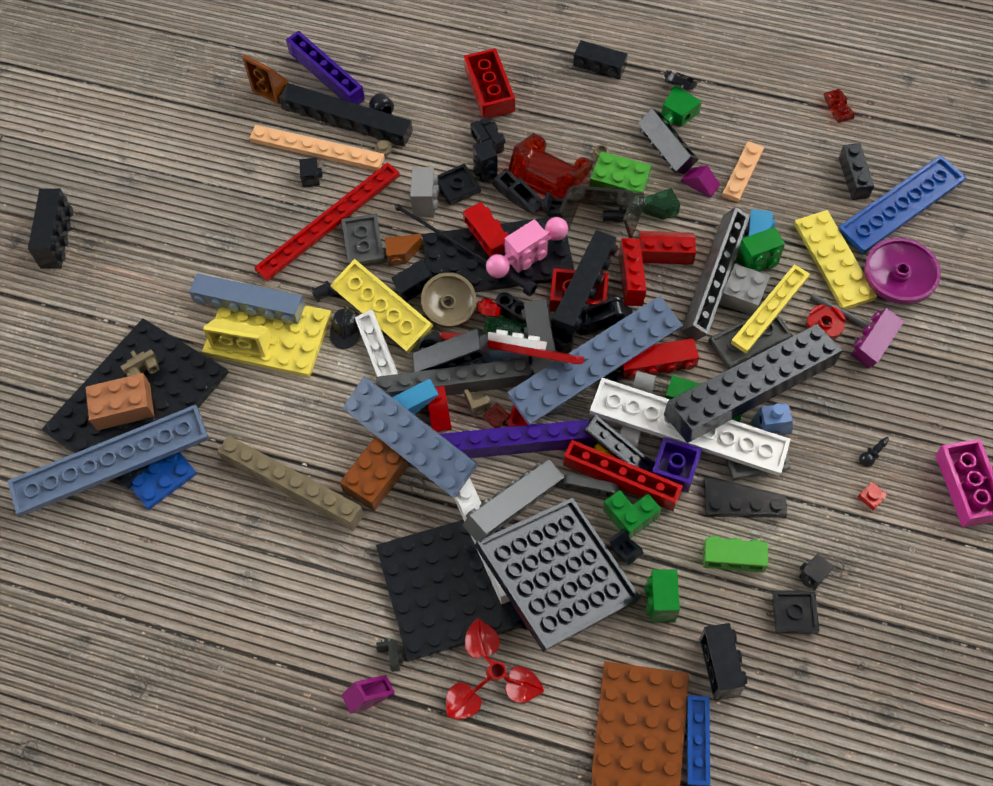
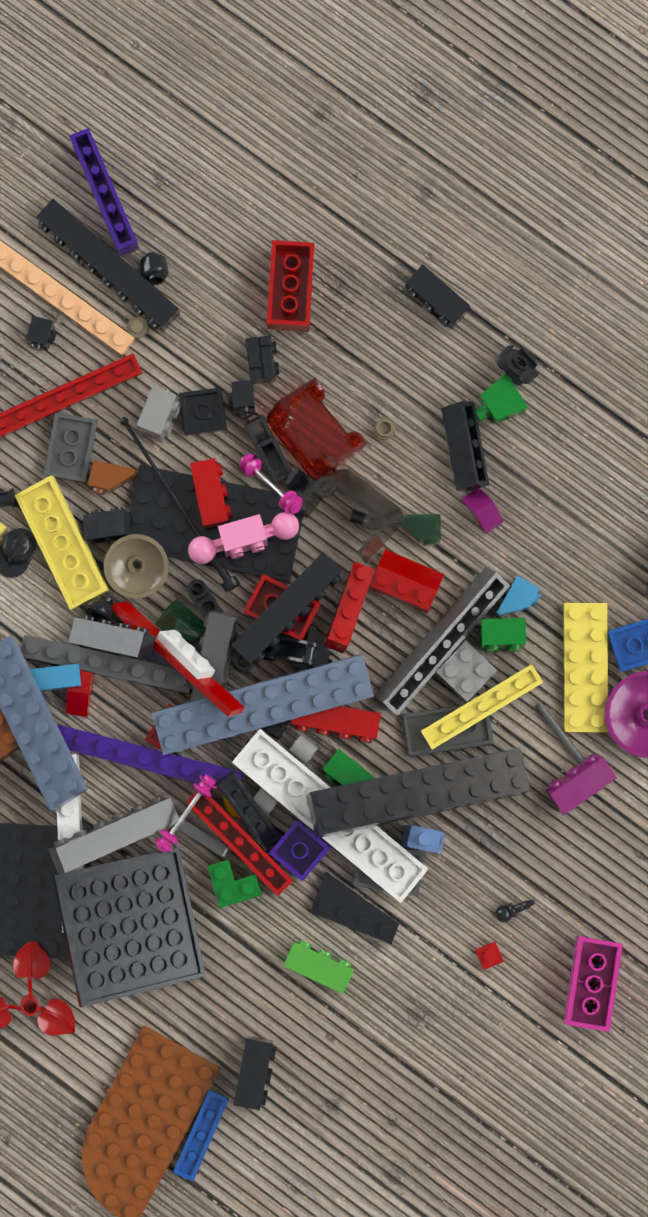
camera: 15 degrees right, 20 degrees up
(264, 80) = (29, 184): dark orange slope -> none
(375, 344) = (39, 593): white plate -> none
(477, 402) = (124, 696): dark tan panel -> none
(488, 307) = (175, 592): red plate -> none
(496, 416) = (138, 722): clear red plate -> none
(552, 208) = (288, 501): none -> dark pink axle
(561, 488) = (168, 837): none -> dark pink axle
(620, 173) = (391, 473): bright green brick -> none
(625, 548) = (212, 918): black bracket -> none
(663, 596) = (224, 986): green brick -> none
(743, 172) = (537, 514): light nougat plate -> none
(795, 611) = (351, 1046): black plate -> none
(815, 571) = (389, 1014): black brick -> none
(826, 313) = (542, 732): red plate -> none

